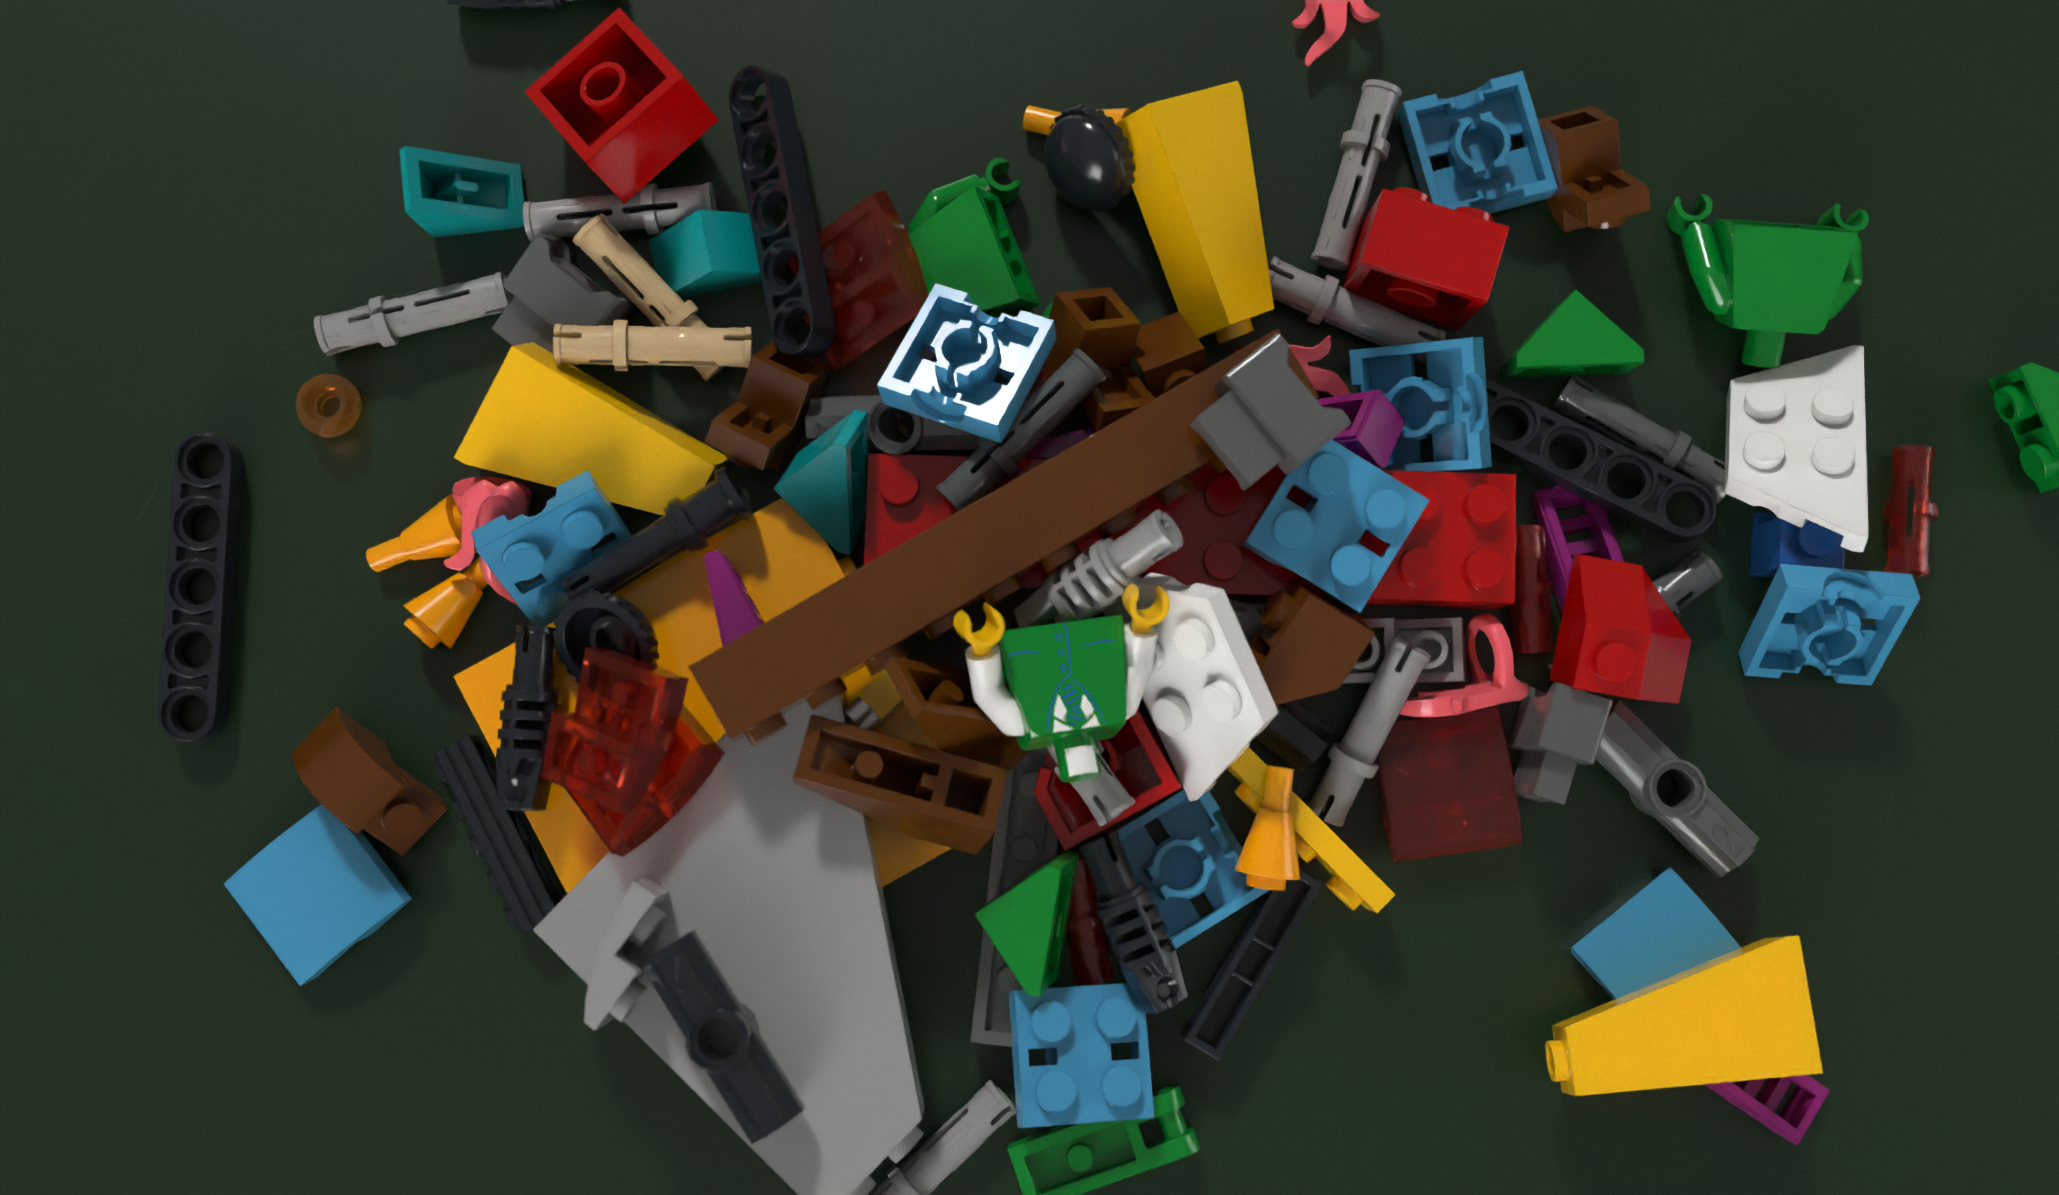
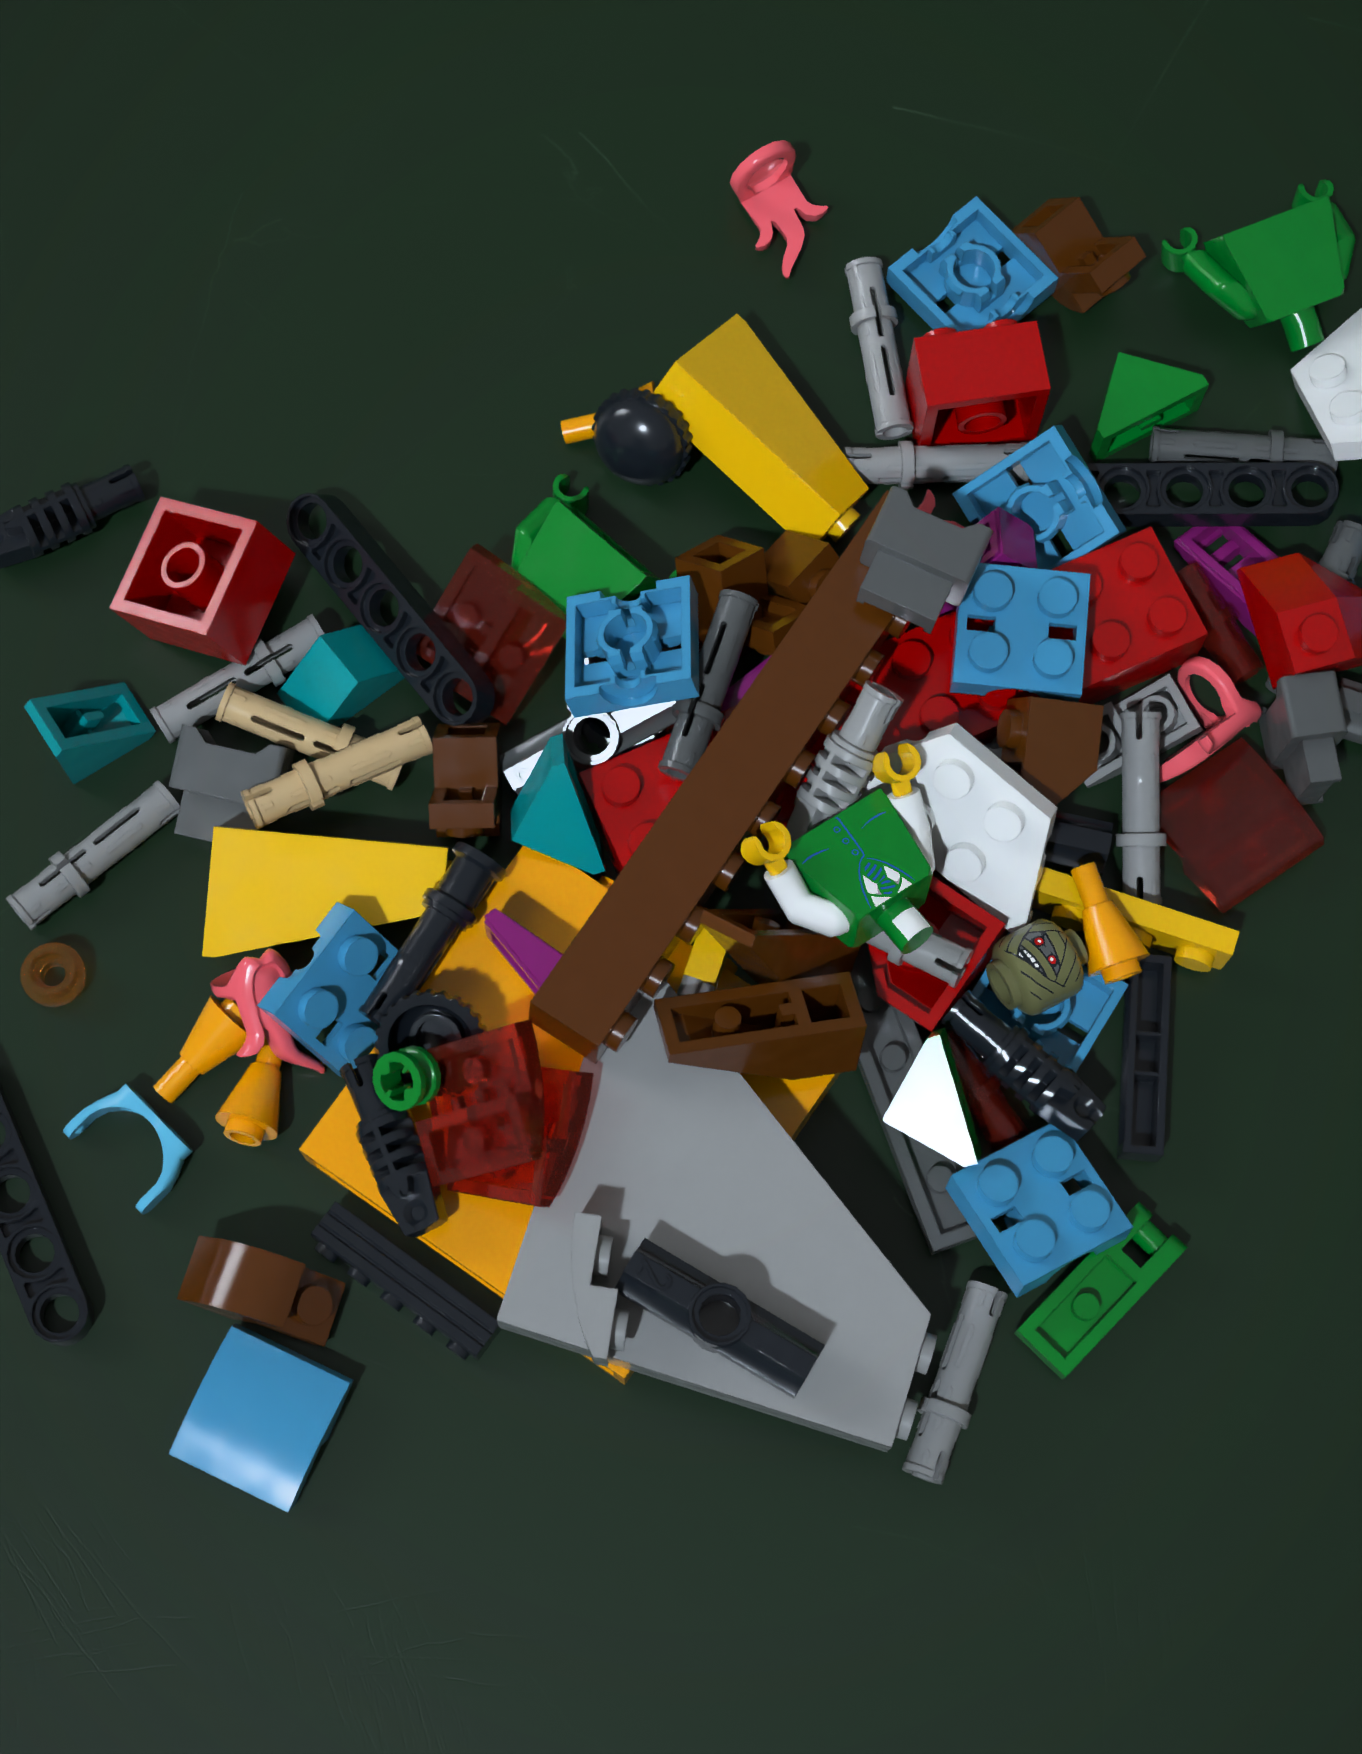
camera: 25 degrees left, 10 degrees down
(359, 606) = (173, 1145): none -> medium azure cap
(563, 668) = (388, 1079): none -> green bush
(1191, 840) = (1037, 967): none -> olive head

